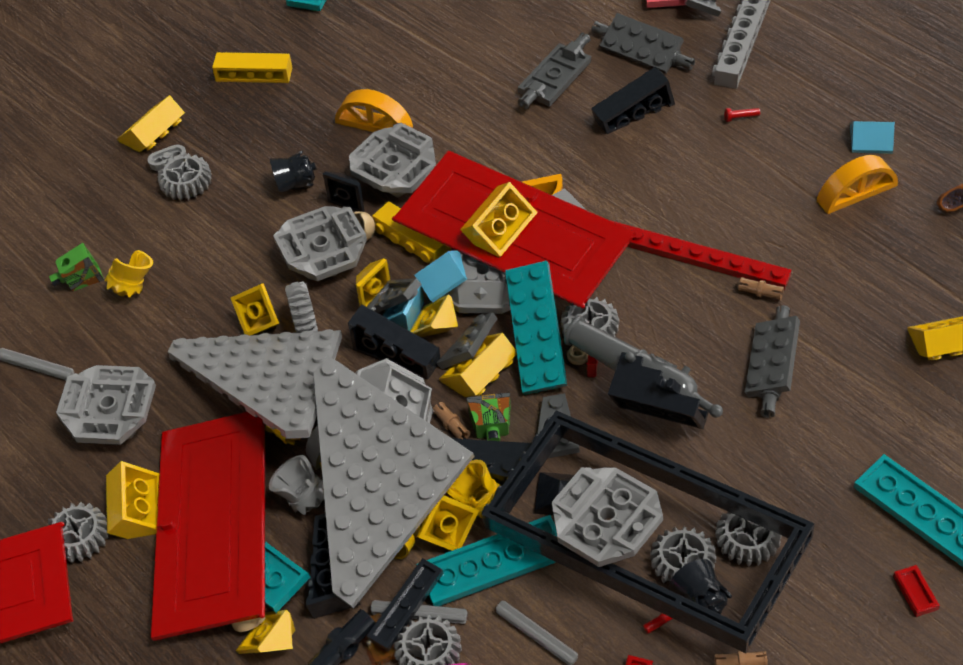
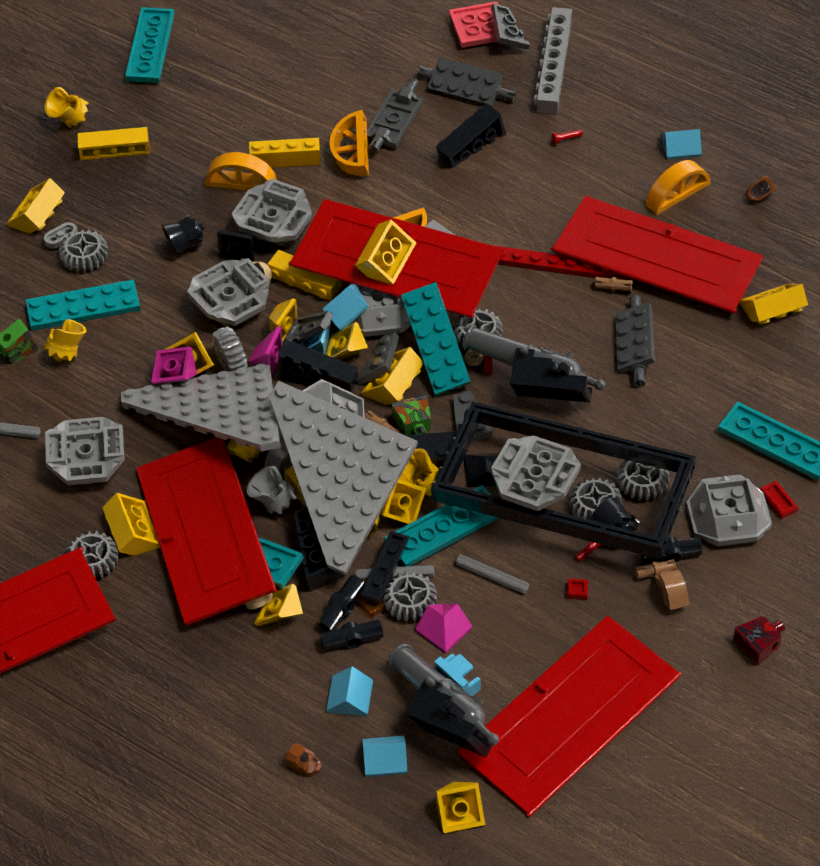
camera: 15 degrees left, 0 degrees up
(166, 236) = (83, 304): none -> teal plate
(213, 24) = (66, 107): none -> yellow hat
(235, 318) = (173, 365): none -> dark pink slope
(339, 316) = (268, 350): none -> dark pink slope
(429, 97) = (287, 152): none -> yellow brick
(504, 117) = (343, 128): none -> light orange window
(775, 638) = (678, 549): none -> black piece
(823, 261) = (659, 254): none -> red door
(843, 617) = (728, 511): none -> light grey piece

